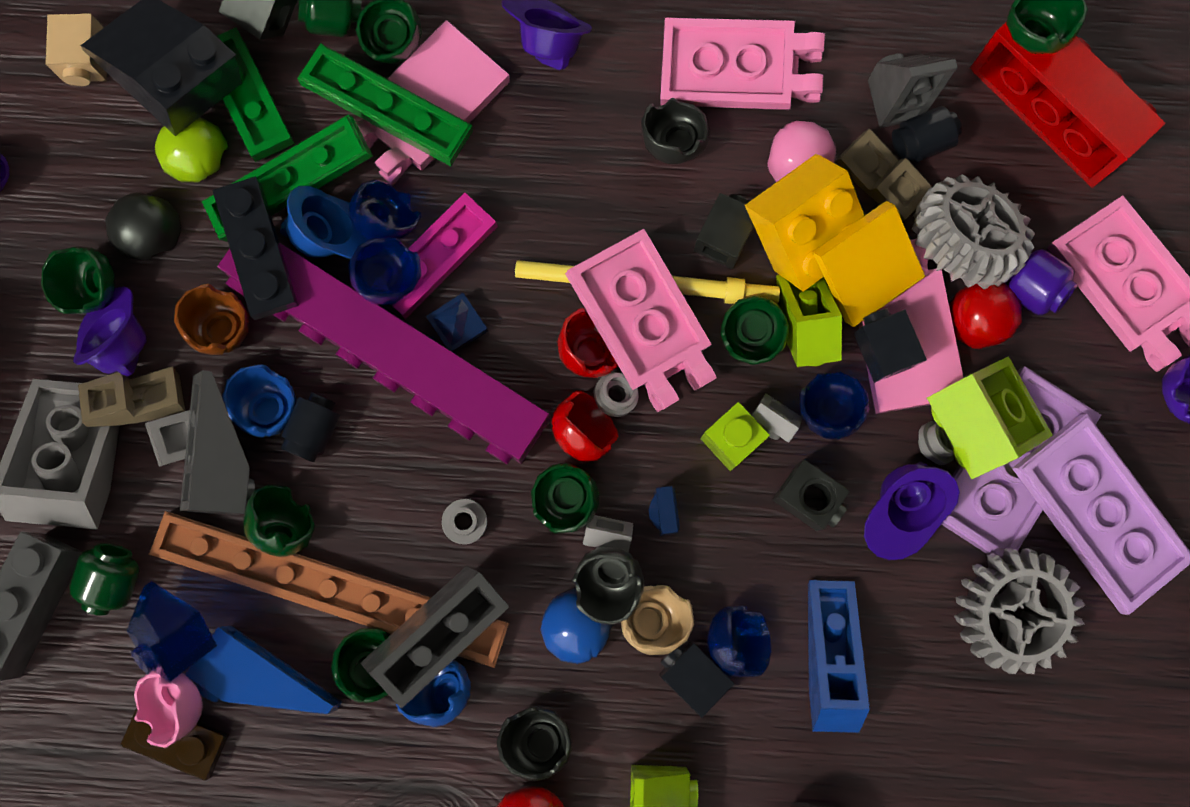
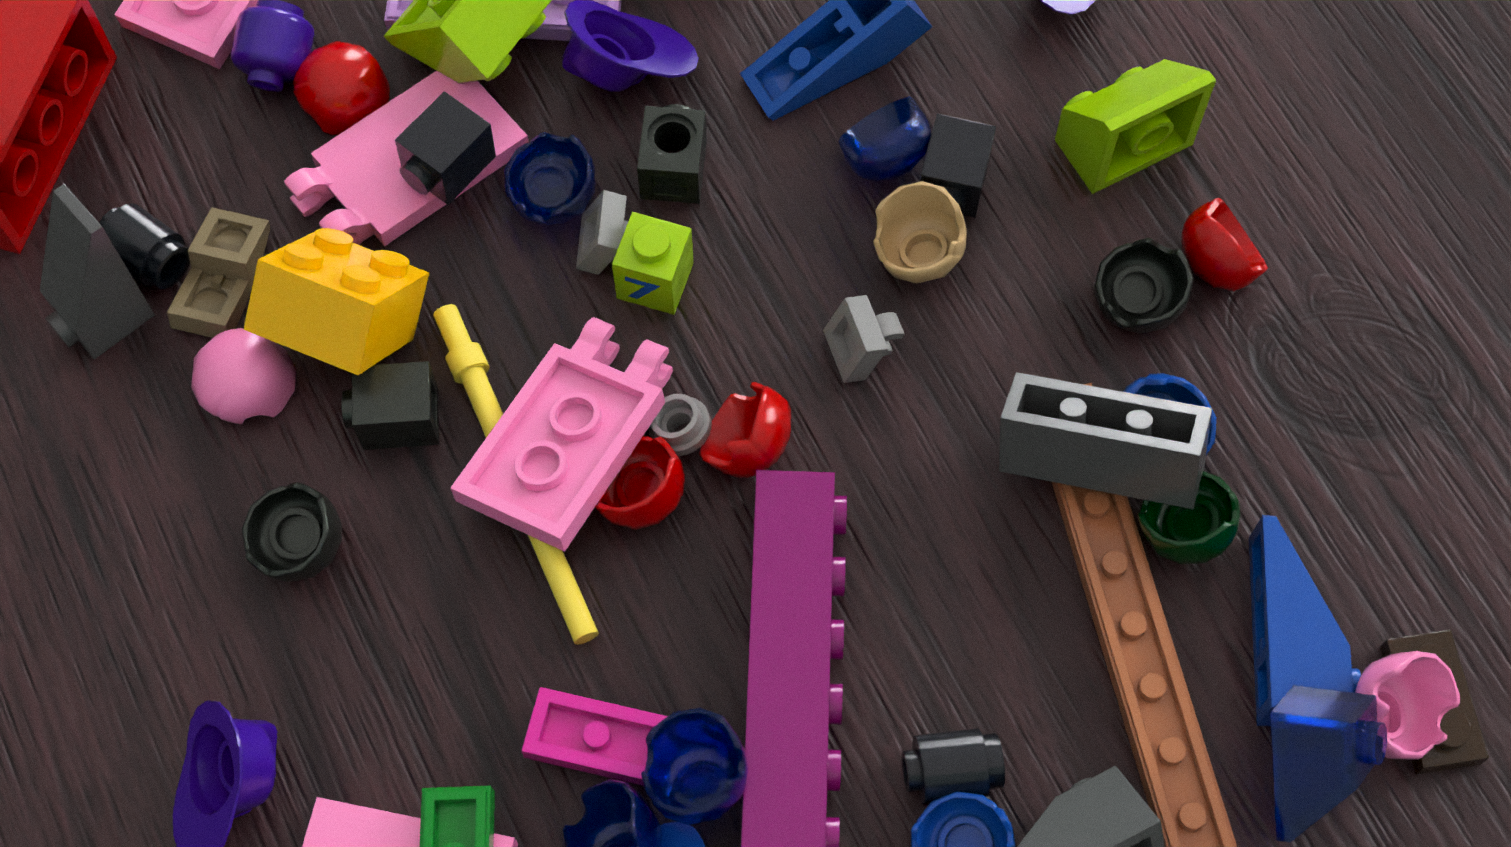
camera: 120 degrees left, 15 degrees down
(276, 522) = (1098, 722): dark green hair -> none
(457, 323) = (703, 668): dark blue tile -> none
(478, 526) = (941, 529): light grey plate -> none
(565, 498) = (845, 404): dark green hair -> none
(570, 632) = (982, 323): blue hair -> none
(608, 585) = (917, 289): pearl dark grey hair -> none
(664, 511) = (788, 292): dark blue tile -> none
(738, 63) = (152, 519): bright pink tile -> none
(755, 330) = (508, 303): dark green hair -> none
(812, 322) = (464, 251): lime slope -> none
(869, 263) = (355, 209): yellow tile -> none
(935, 444) = (530, 61): light grey plate -> none
(973, 231) = (250, 129): light grey gear -> none

